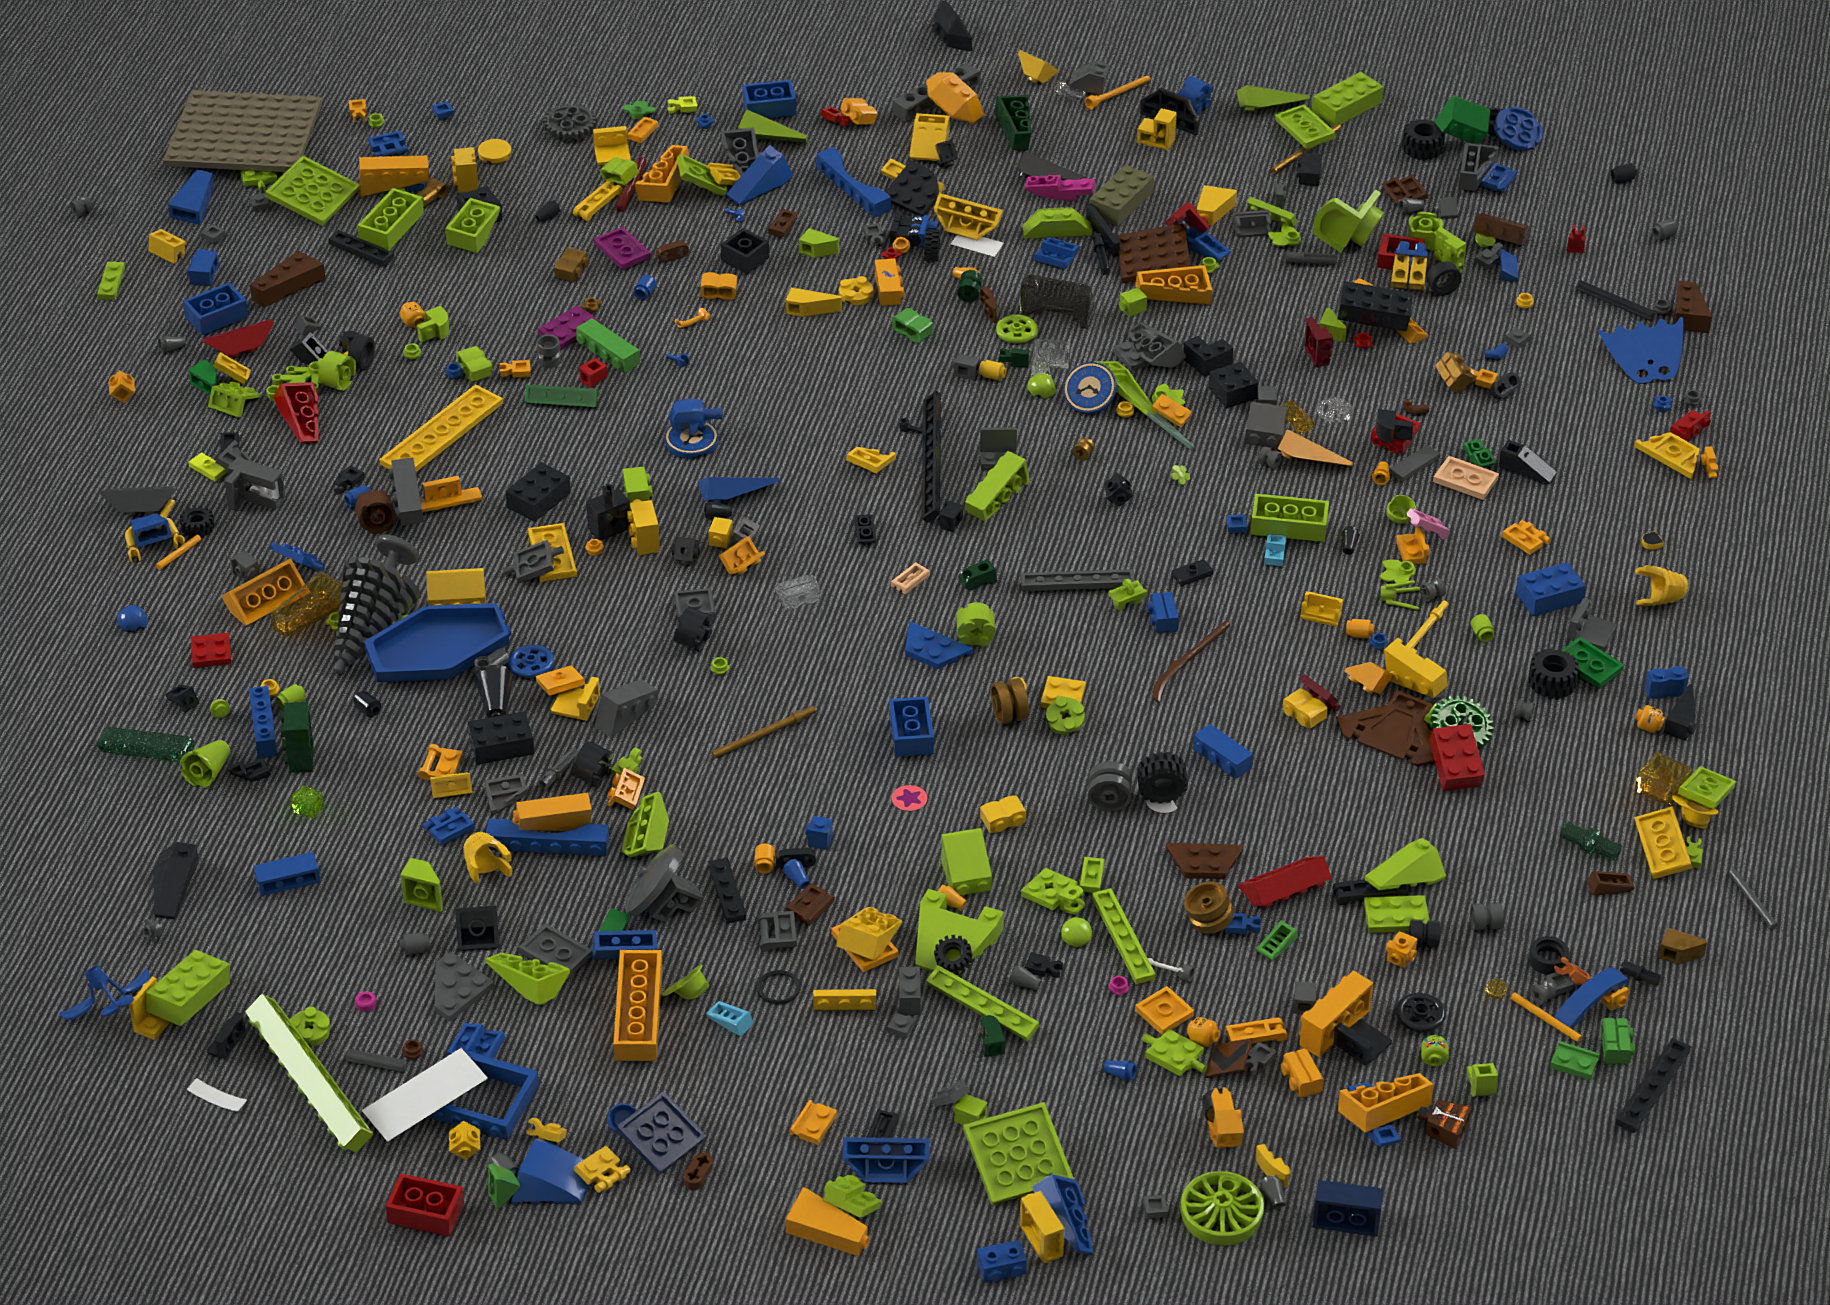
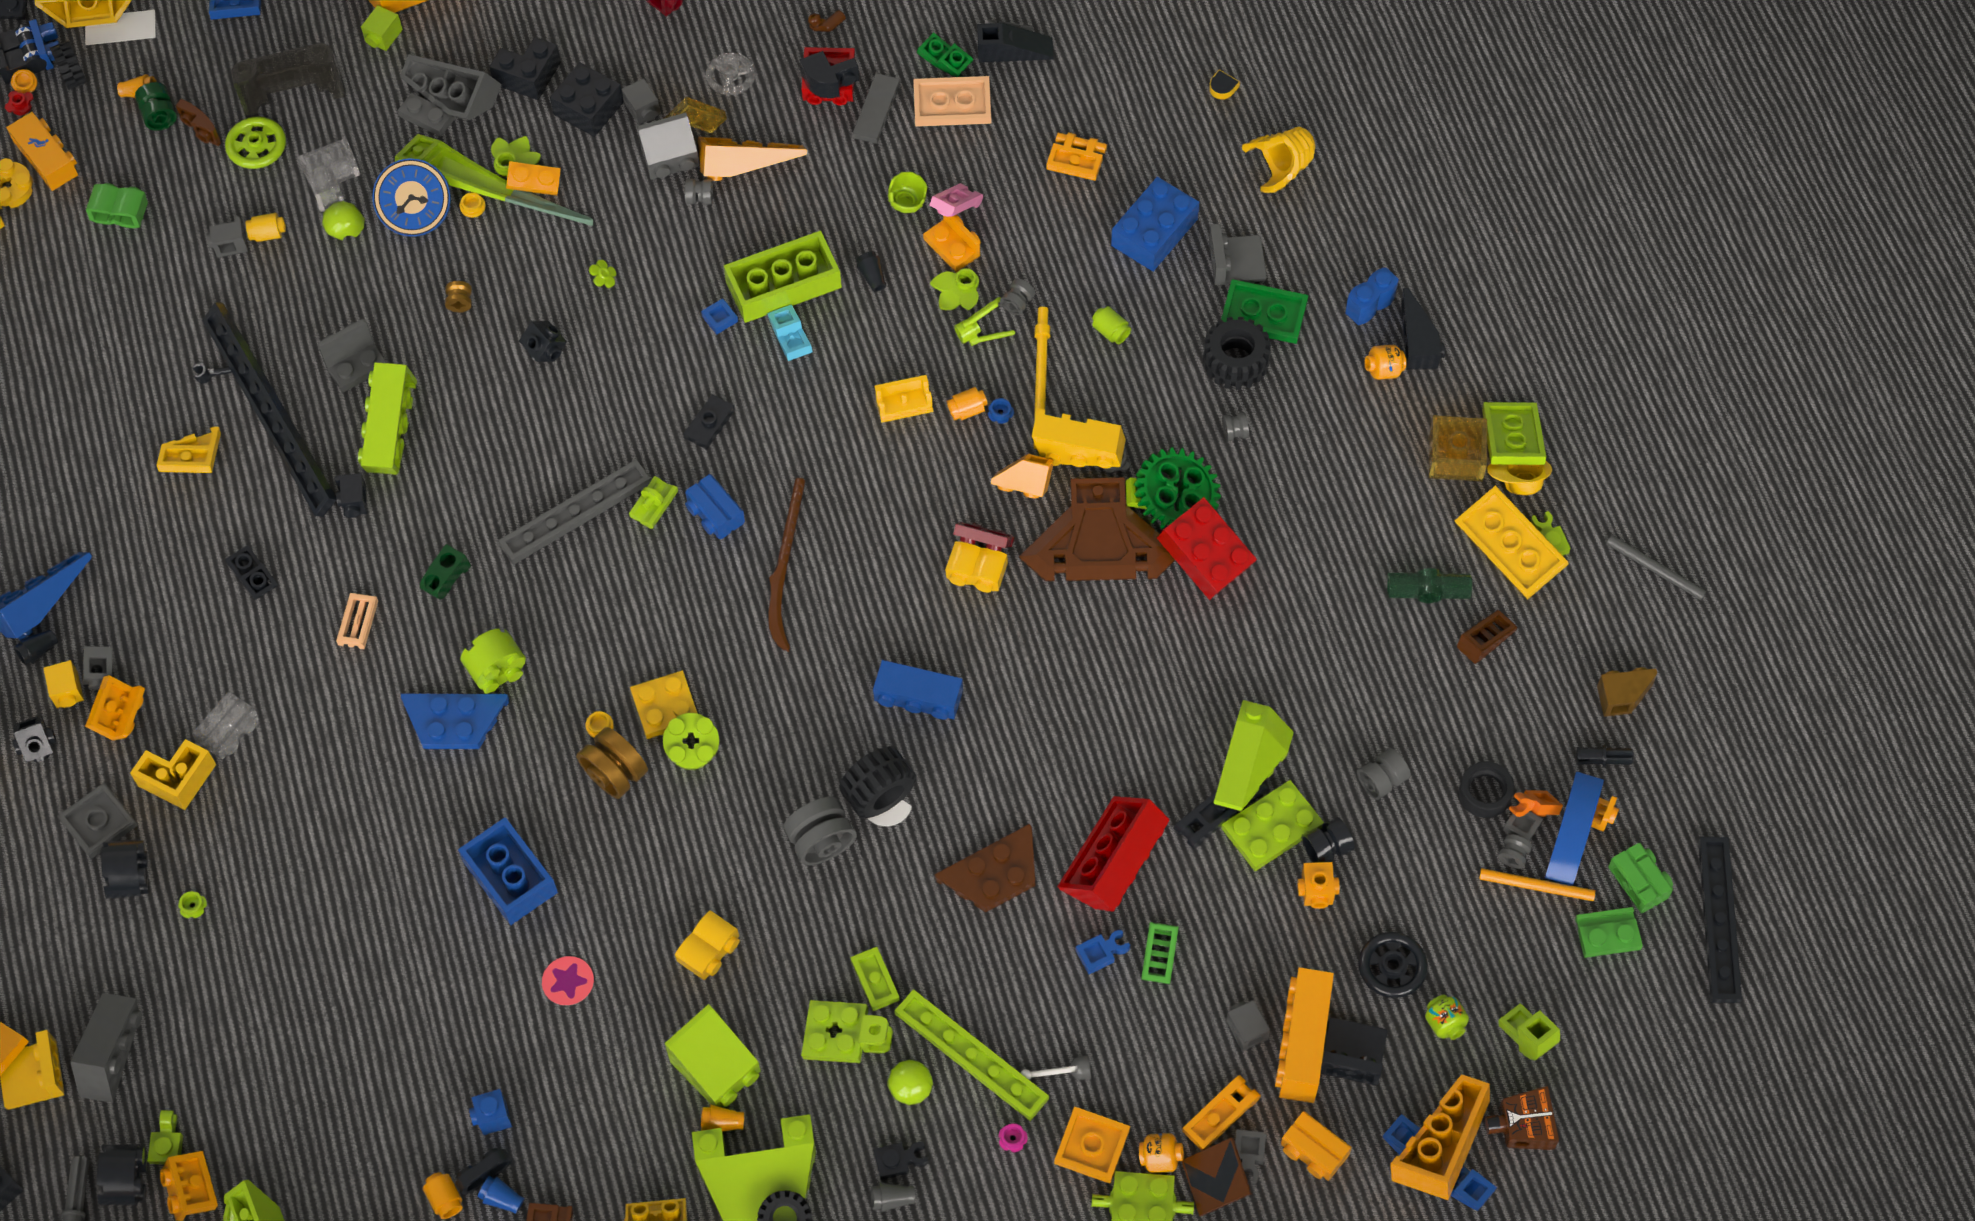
camera: 30 degrees left, 20 degrees up
(751, 601) = (174, 780): none -> yellow brick
(796, 717) = (344, 933): pearl gold bar -> none
(1017, 357) = (285, 191): dark green plate -> none
(1209, 907) = (1055, 956): pearl gold wheel -> none
(1381, 474) = (848, 147): light orange cone -> none
(1496, 988) = (1455, 874): clear yellow tile -> none

